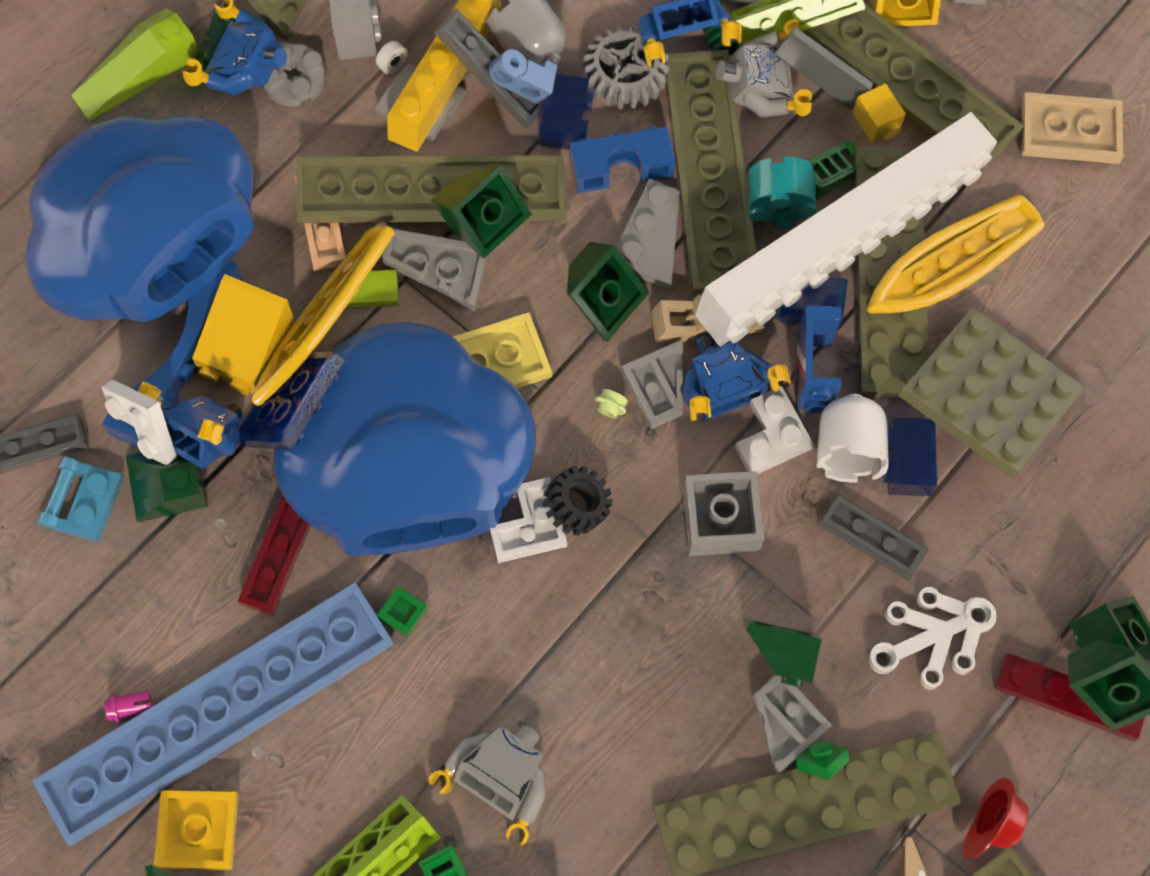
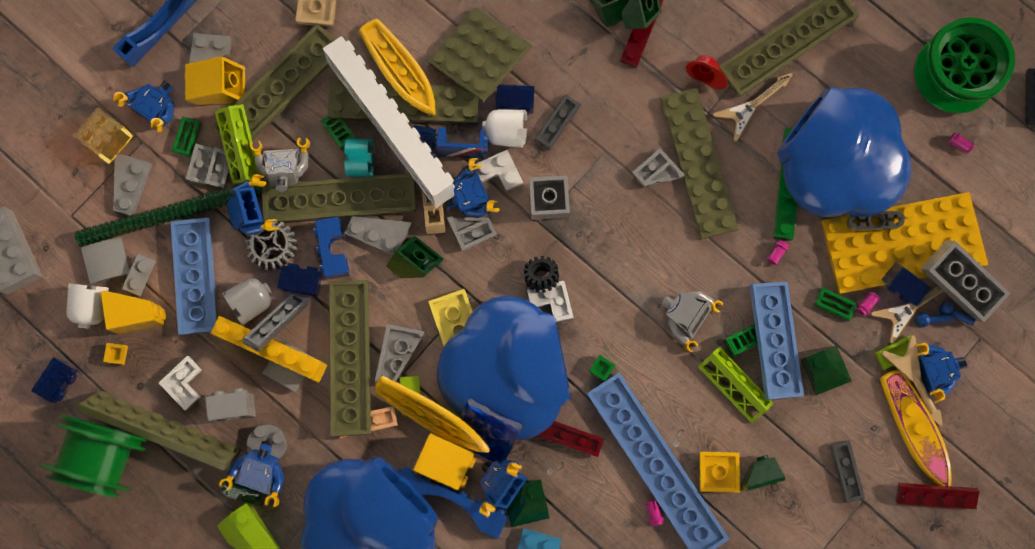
camera: 90 degrees left, 10 degrees up
(146, 418) = (502, 508): white plate -> none
(391, 57) = (259, 383): white tile -> none
(482, 207) = (368, 326): dark green slope -> none
(523, 76) = (283, 299): medium blue leg -> none
(611, 403) = (483, 256): yellowish green plate -> none
(786, 650) = (622, 166): dark green slope -> none
(822, 67) = (279, 130): dark grey tile -> none
(822, 759) = (678, 153): green plate -> none
(879, 114) = (307, 102): yellow brick -> none
(937, 633) = (610, 92): white plant -> none

